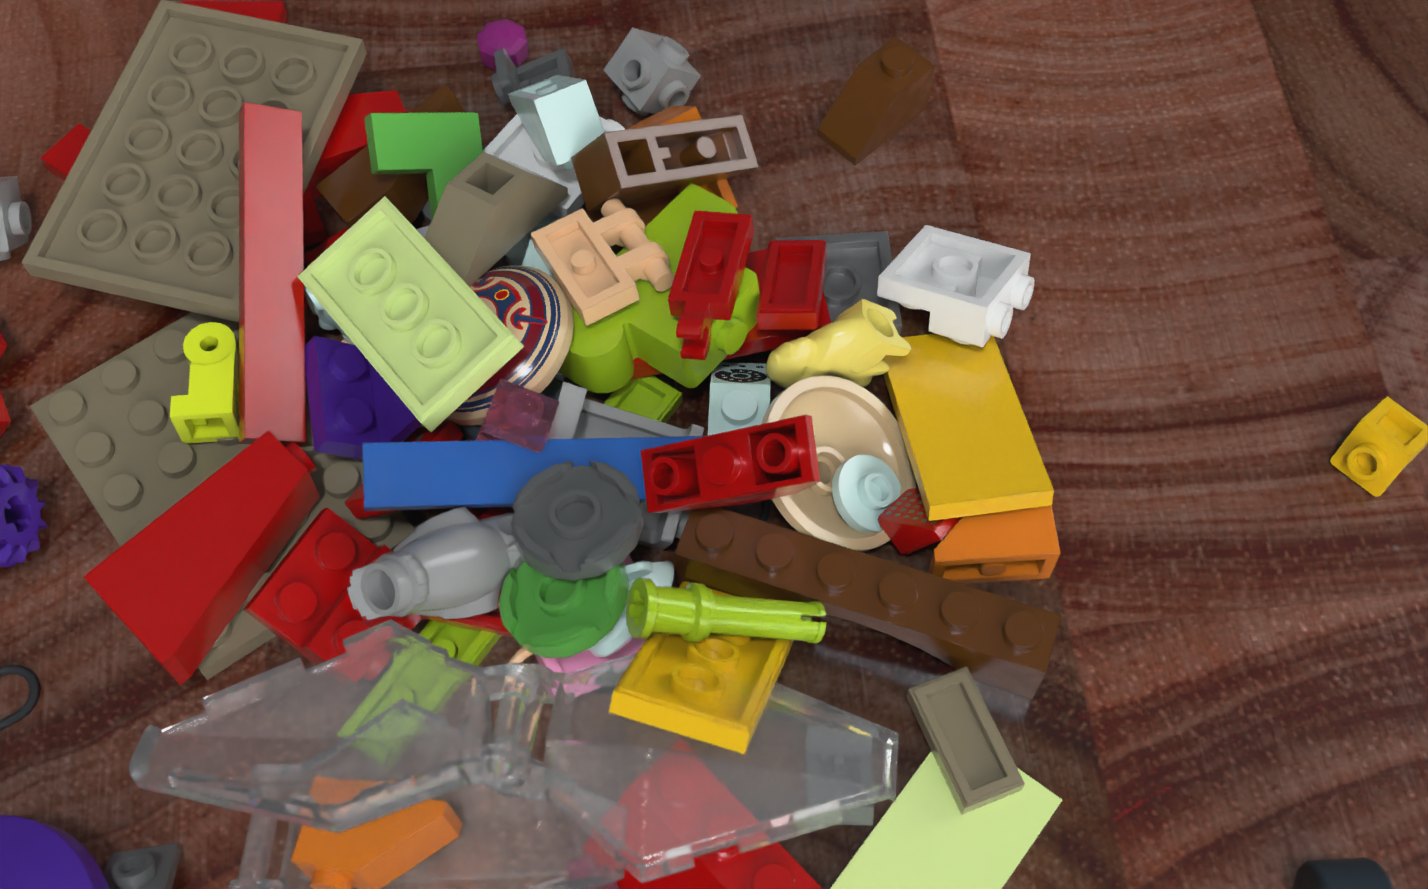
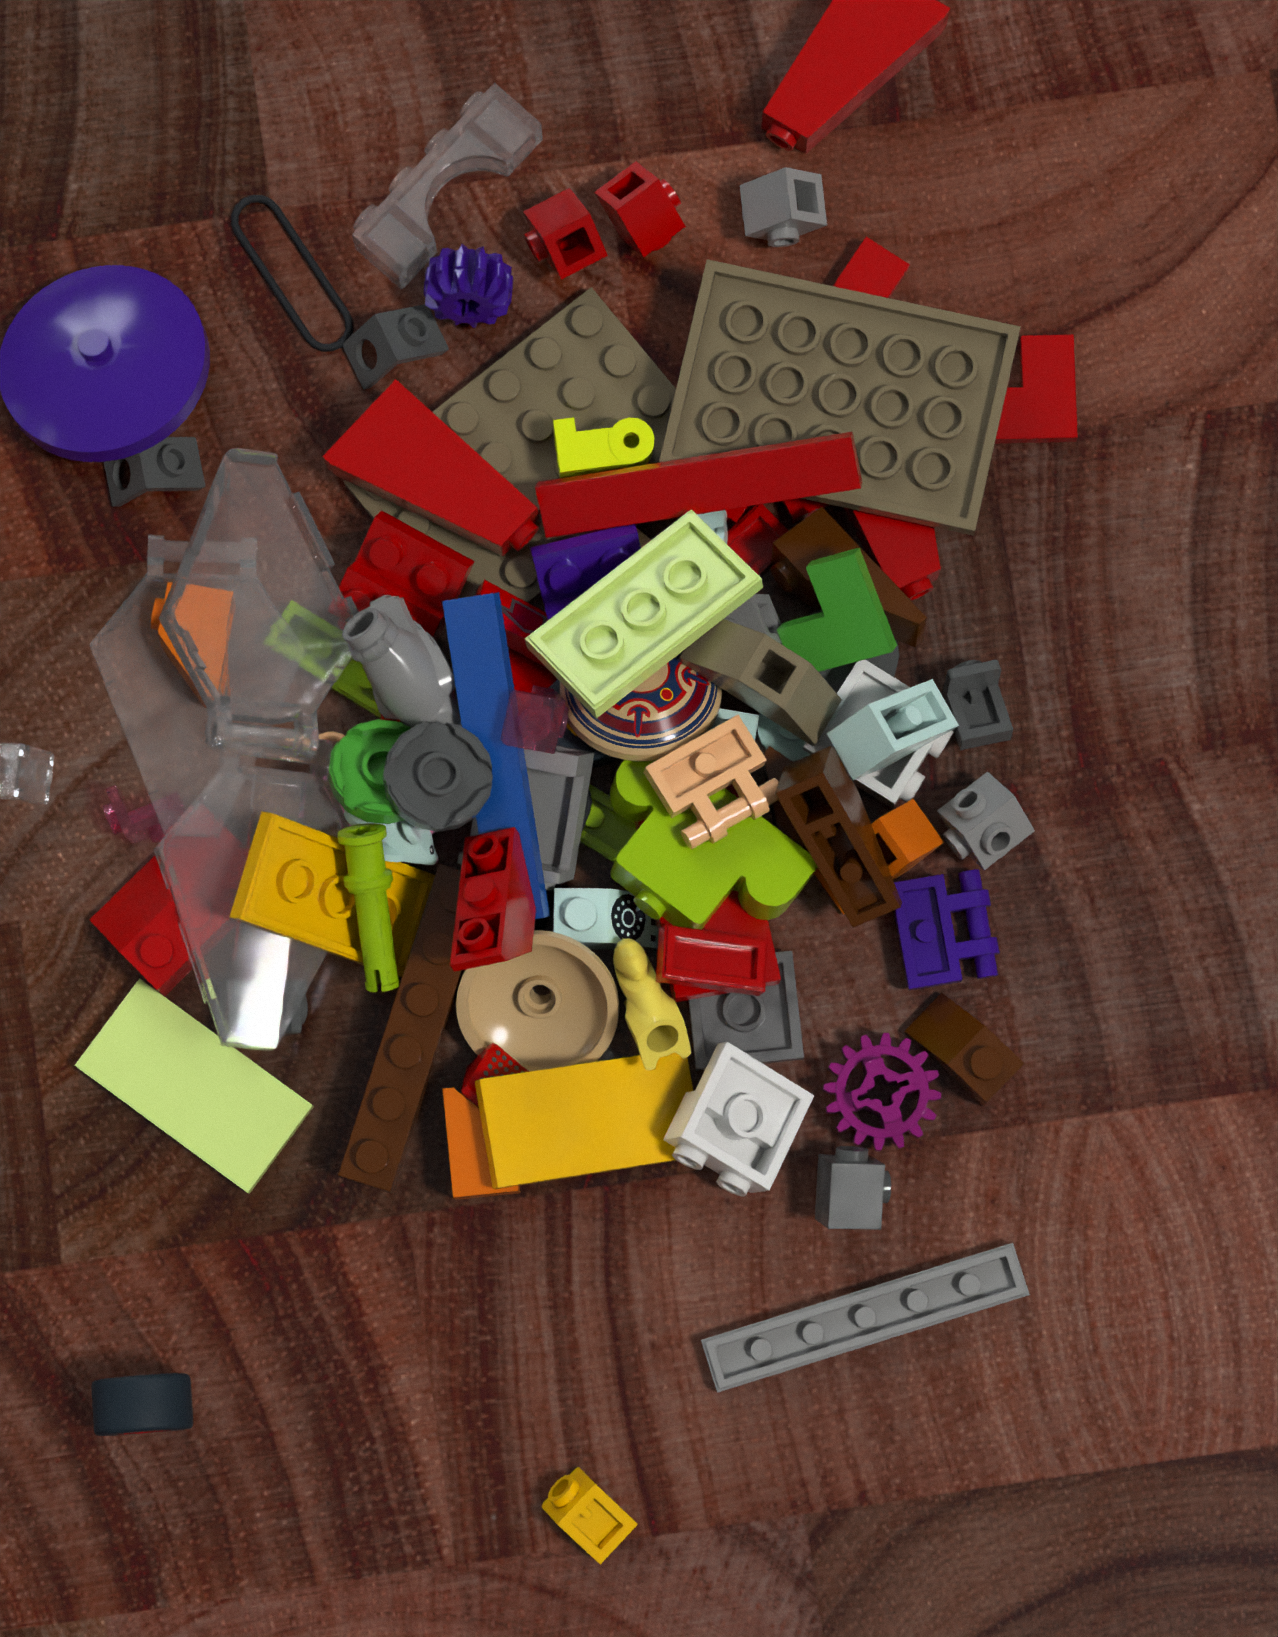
camera: 90 degrees right, 20 degrees up
(43, 598) = (398, 339): none -> dark grey bracket
(502, 35) = (1034, 667): magenta tile -> none
(709, 276) = (687, 878): red plate -> none
(773, 113) = (928, 935): none -> dark purple plate
(863, 491) = (524, 1033): light aqua piece -> none
(920, 170) = (873, 1068): none -> magenta gear
(964, 740) = (293, 1112): dark tan tile -> none
(1023, 193) = (851, 1189): none -> dark grey brick
(1145, 208) = (865, 1317): none -> light grey tile

